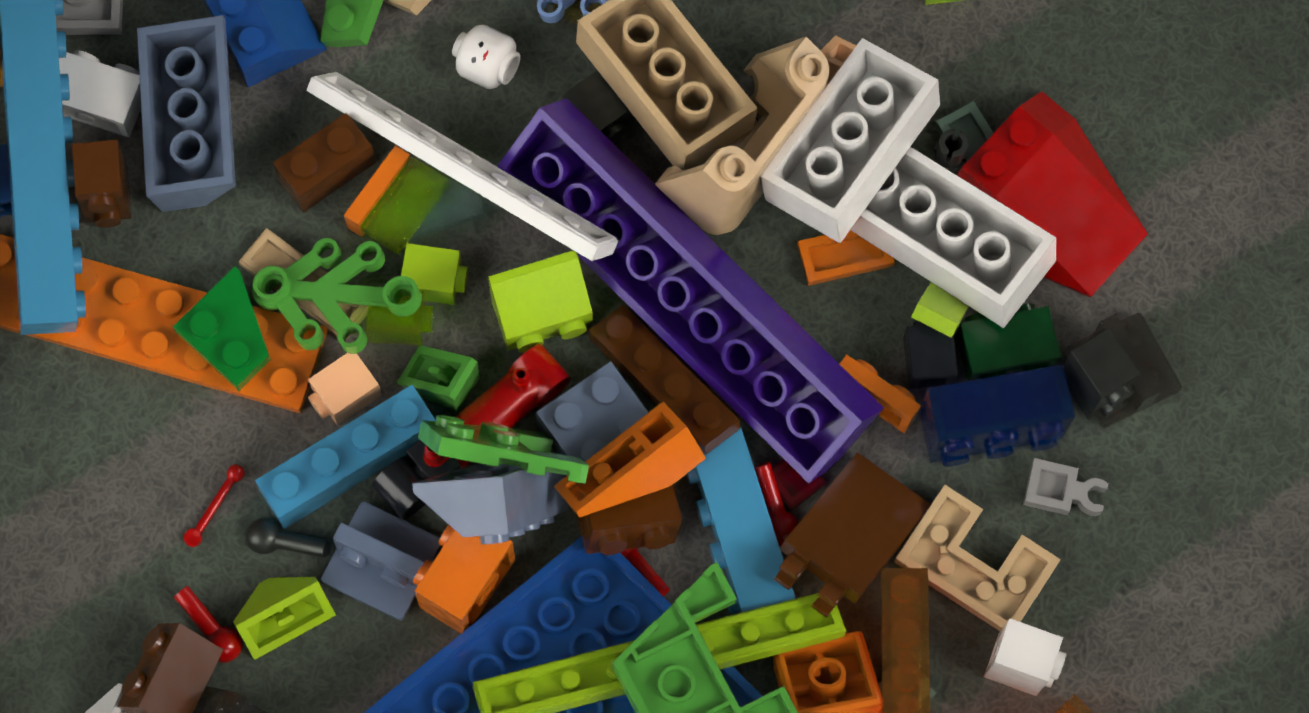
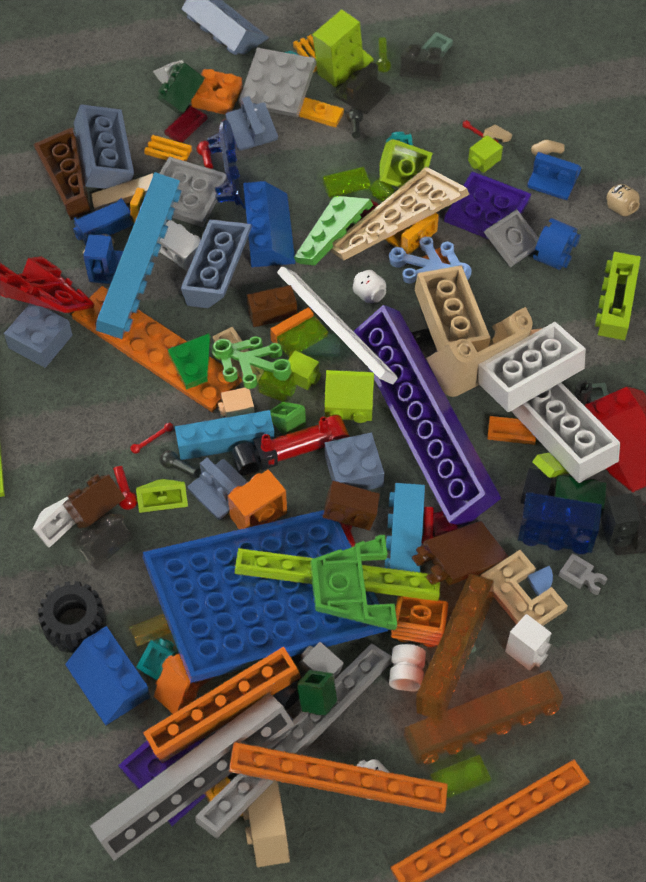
camera: 25 degrees right, 15 degrees down
(101, 182) = (163, 278): reddish brown brick -> none
(492, 500) = (289, 466): sand blue slope -> none
(499, 444) = (298, 442): bright green wing -> none
(635, 463) = (368, 477): orange slope -> none
(664, 377) = (396, 453): reddish brown plate -> none
(897, 401) = (508, 504): orange plate -> none
(999, 526) = (541, 580): none -> medium blue tile

